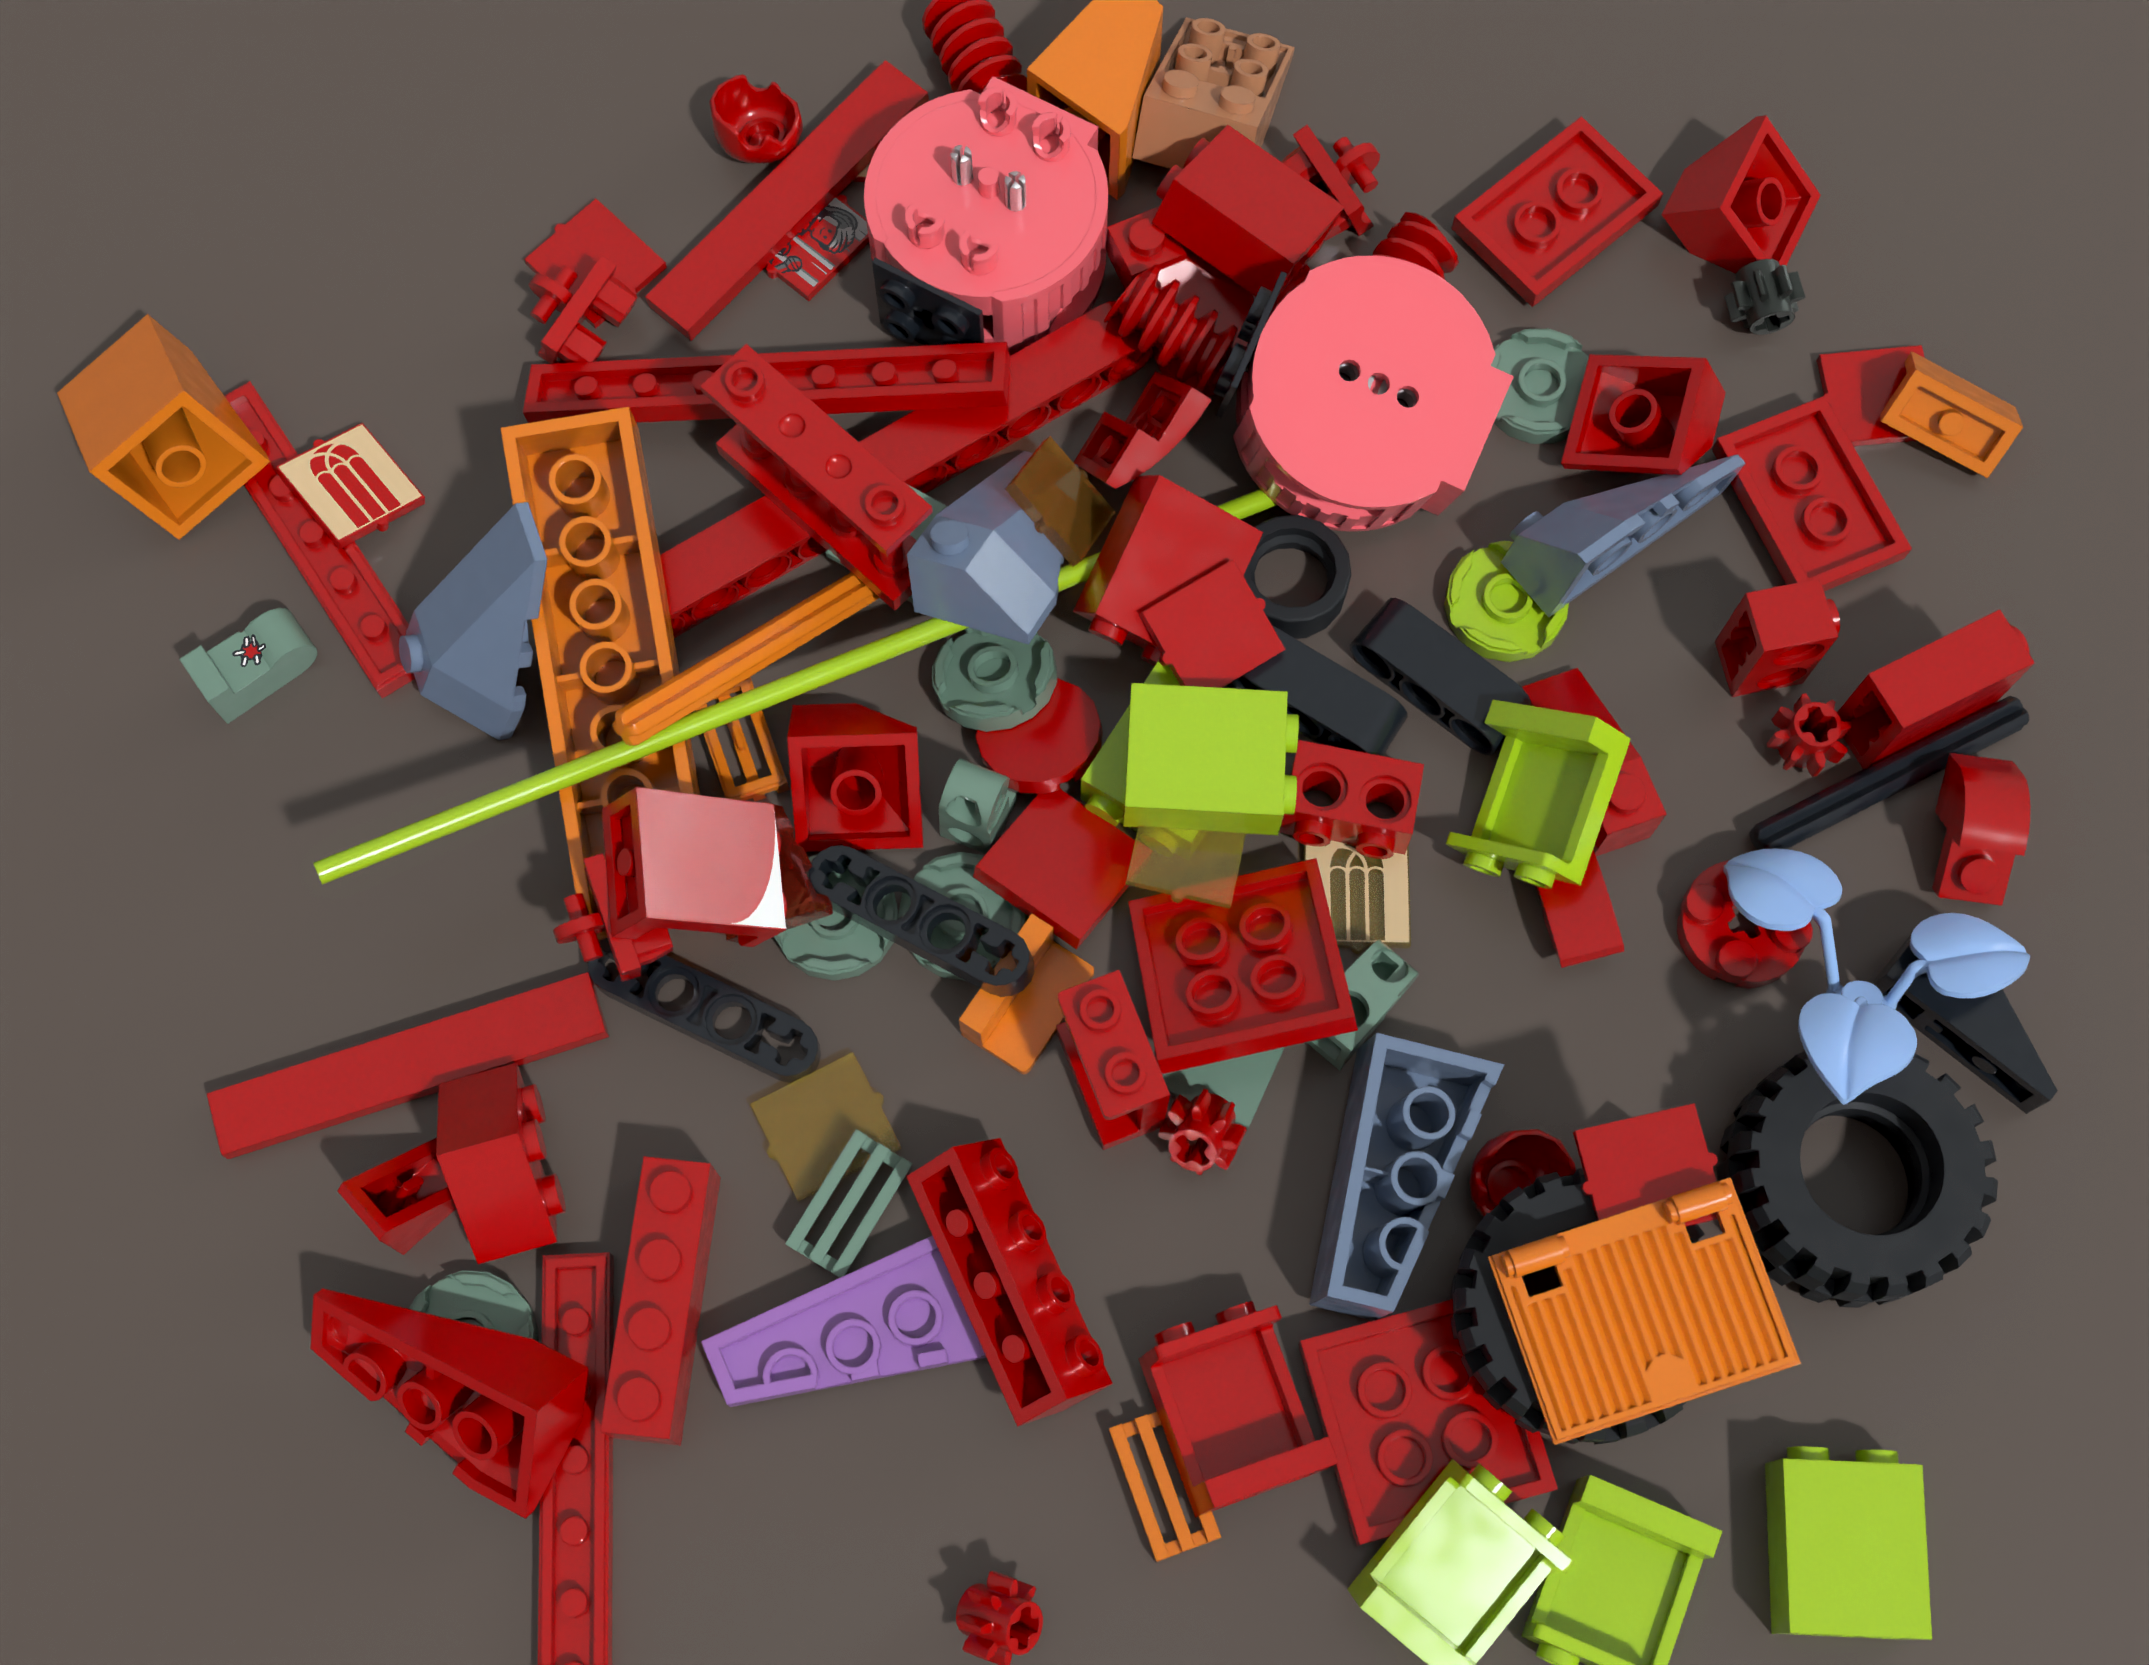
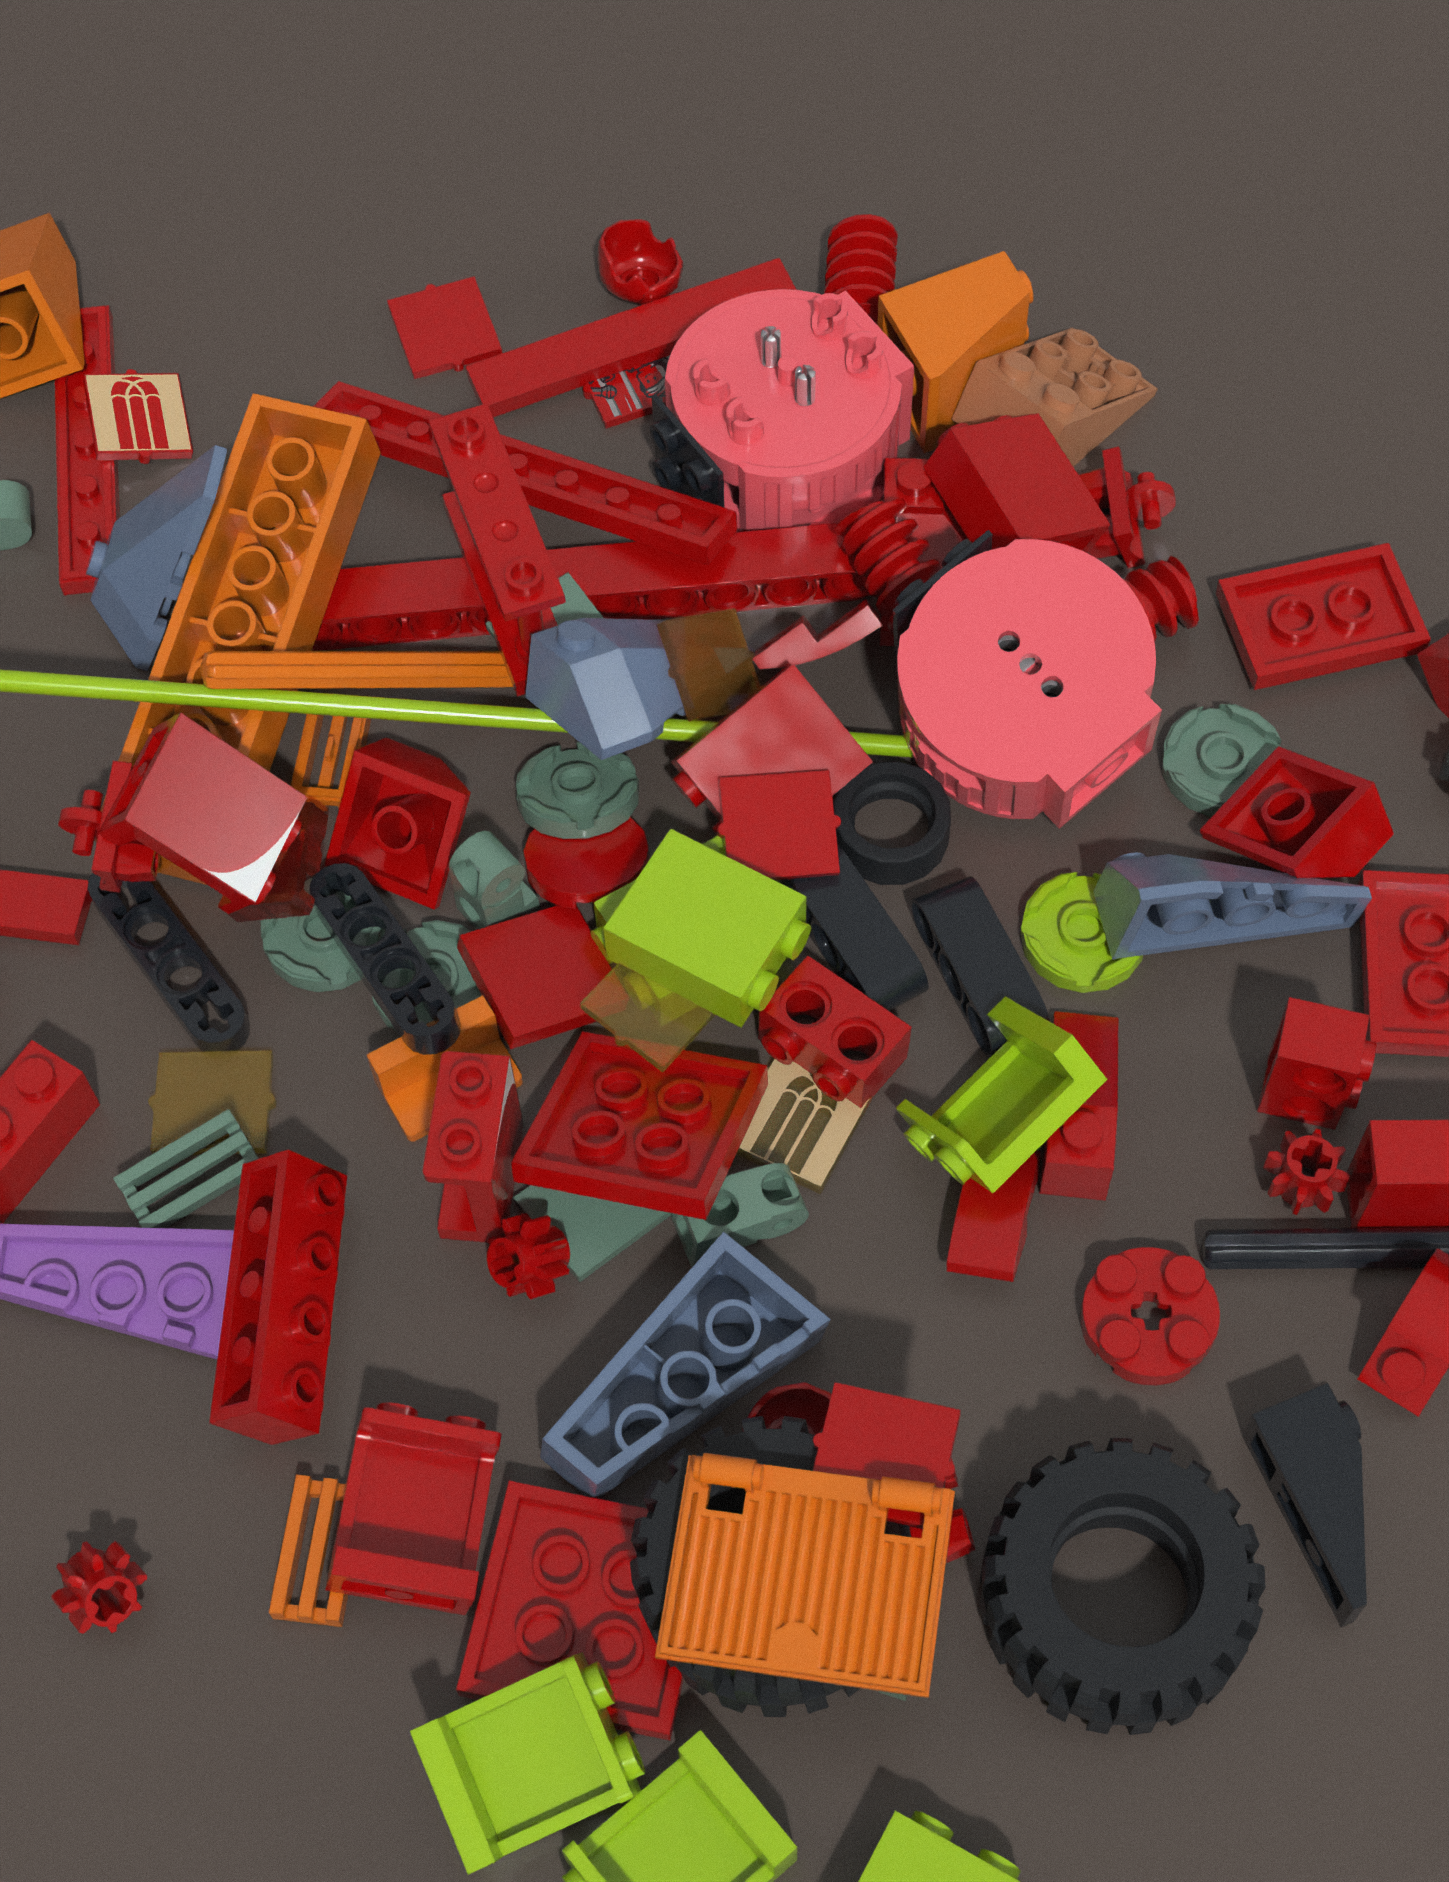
camera: 30 degrees right, 10 degrees down
(597, 292) = (396, 346): red hips -> none
(1854, 1030) = (1157, 1437): light blue plant -> none

